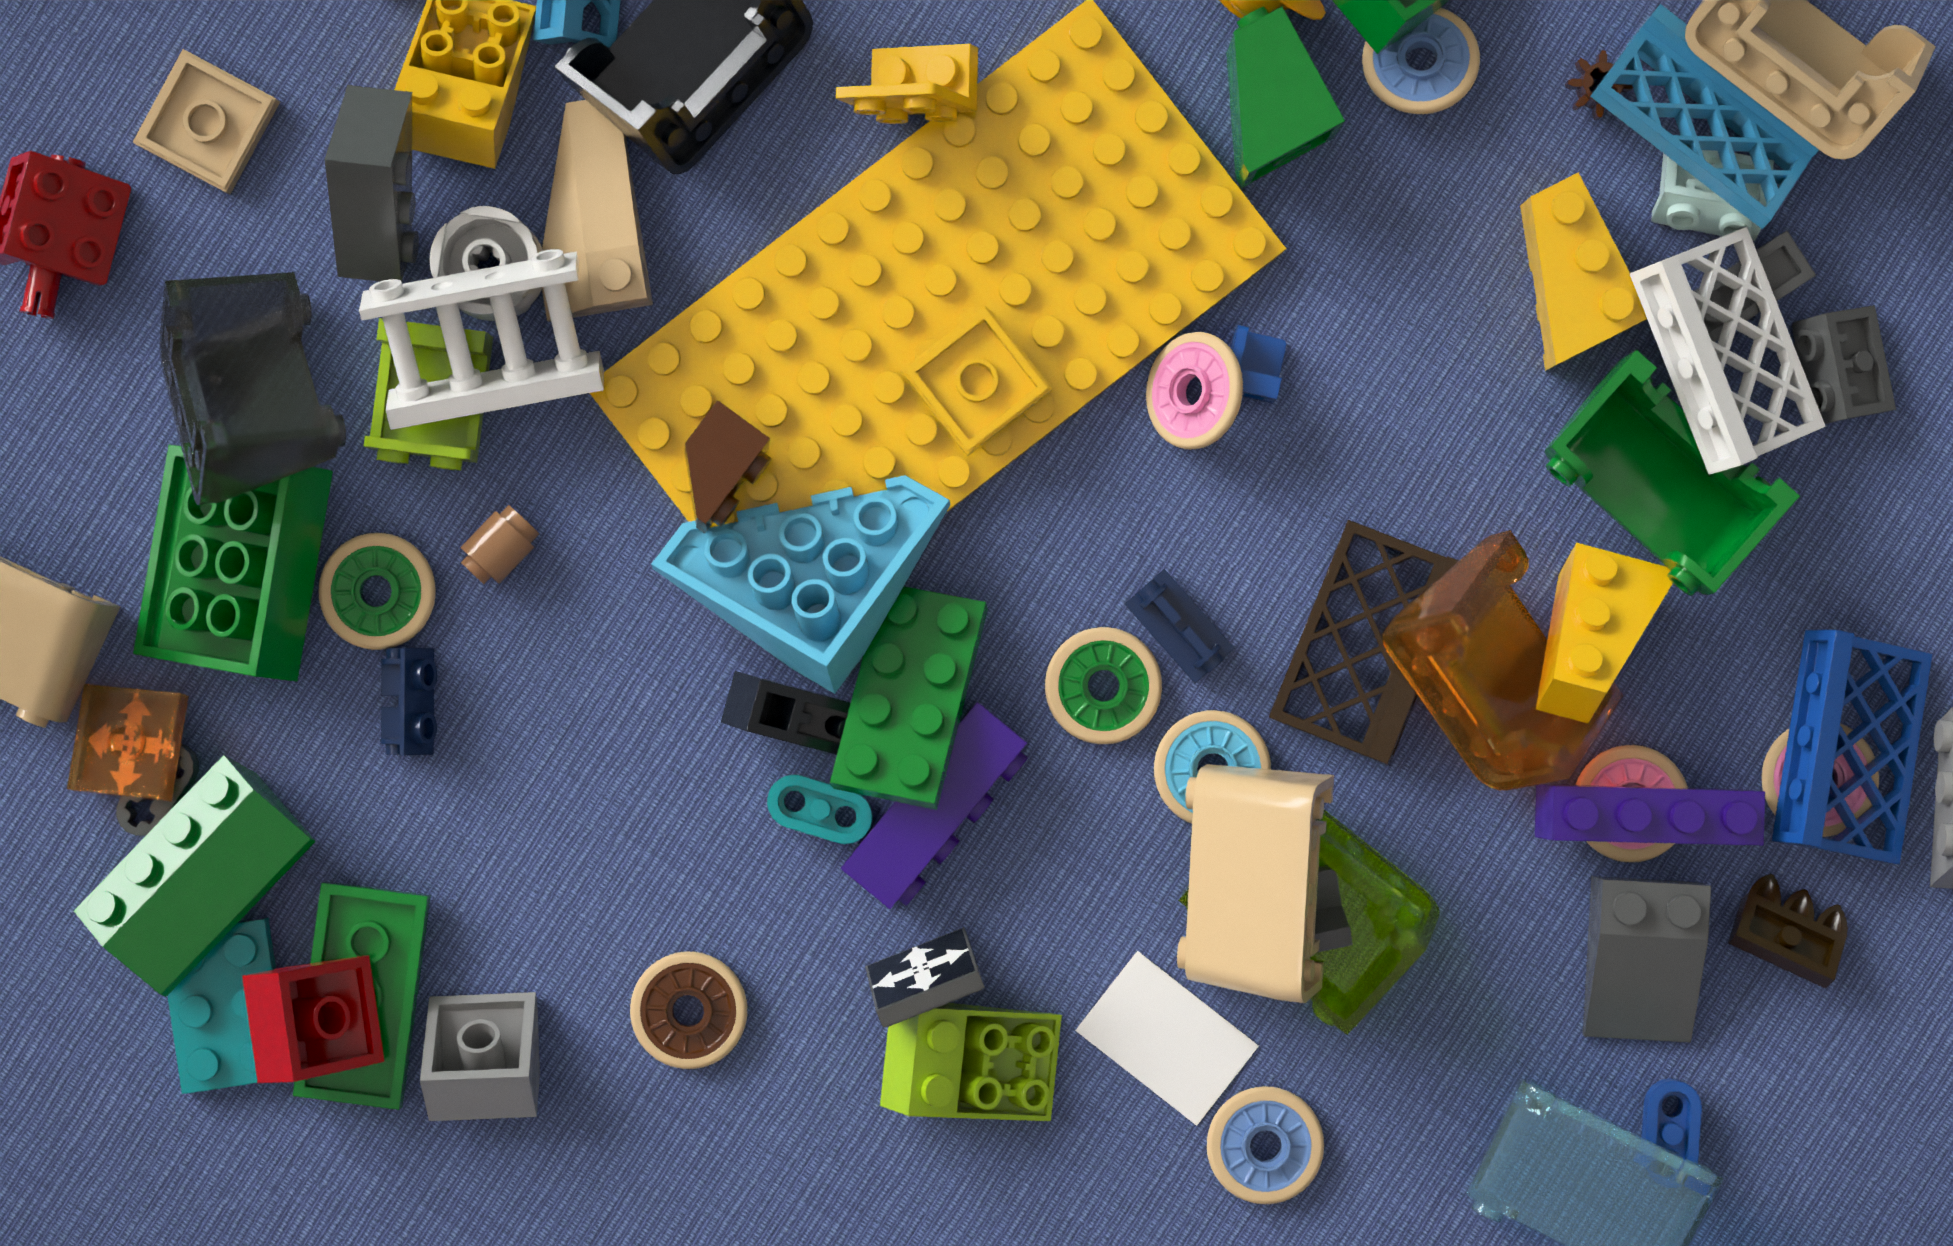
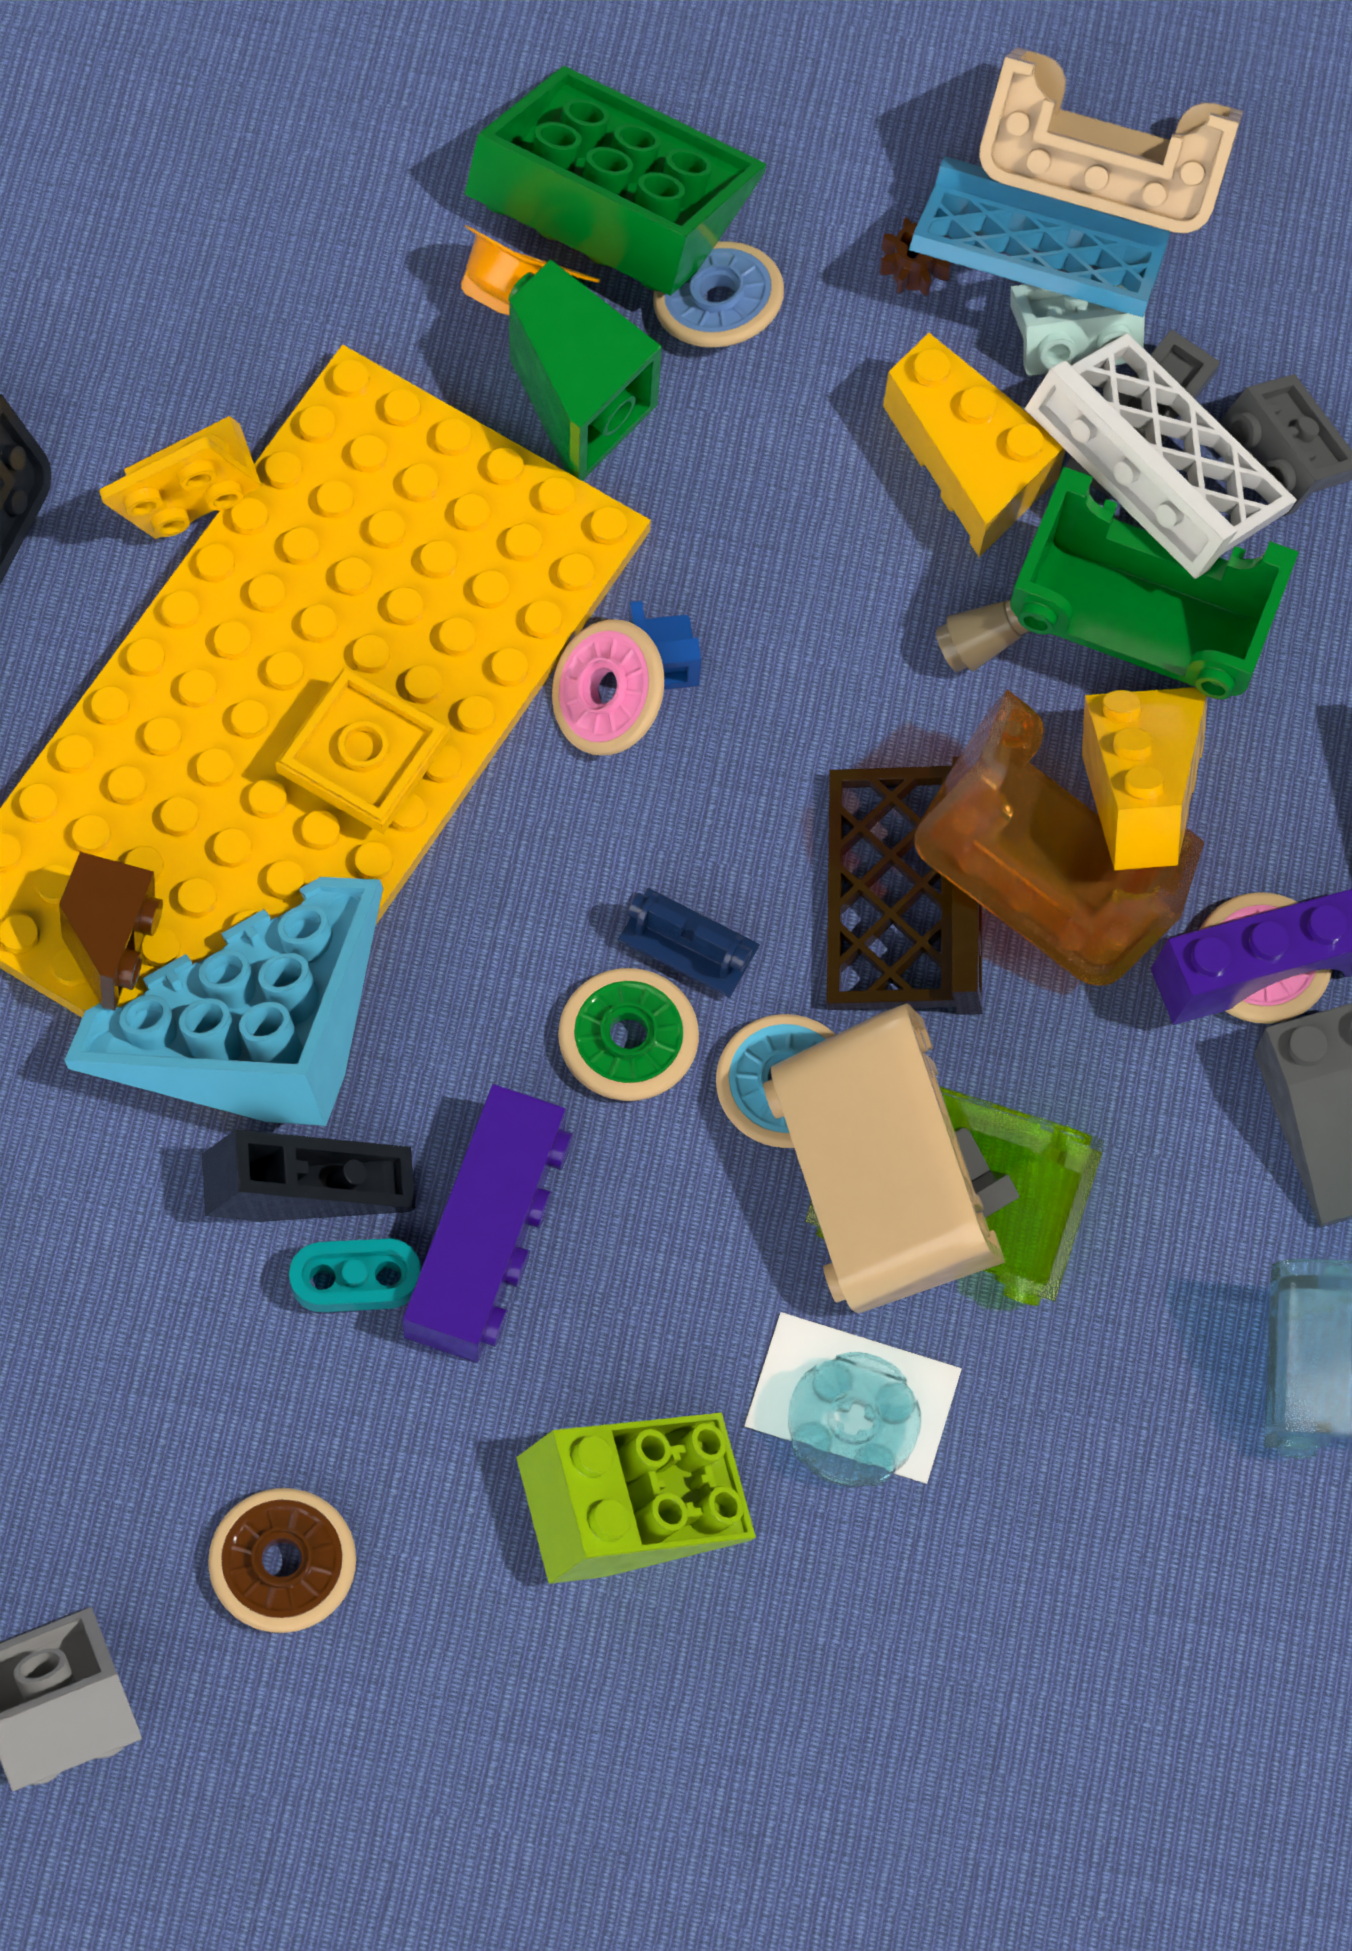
camera: 30 degrees left, 20 degrees down
(910, 699) = (414, 1108): green plate -> none
(924, 977) = (546, 1406): tile -> none
(1158, 1094) = (820, 1438): none -> clear light blue plate
(1270, 1179) = (1004, 1512): wheel -> none
(1512, 450) = (978, 635): none -> dark tan cone

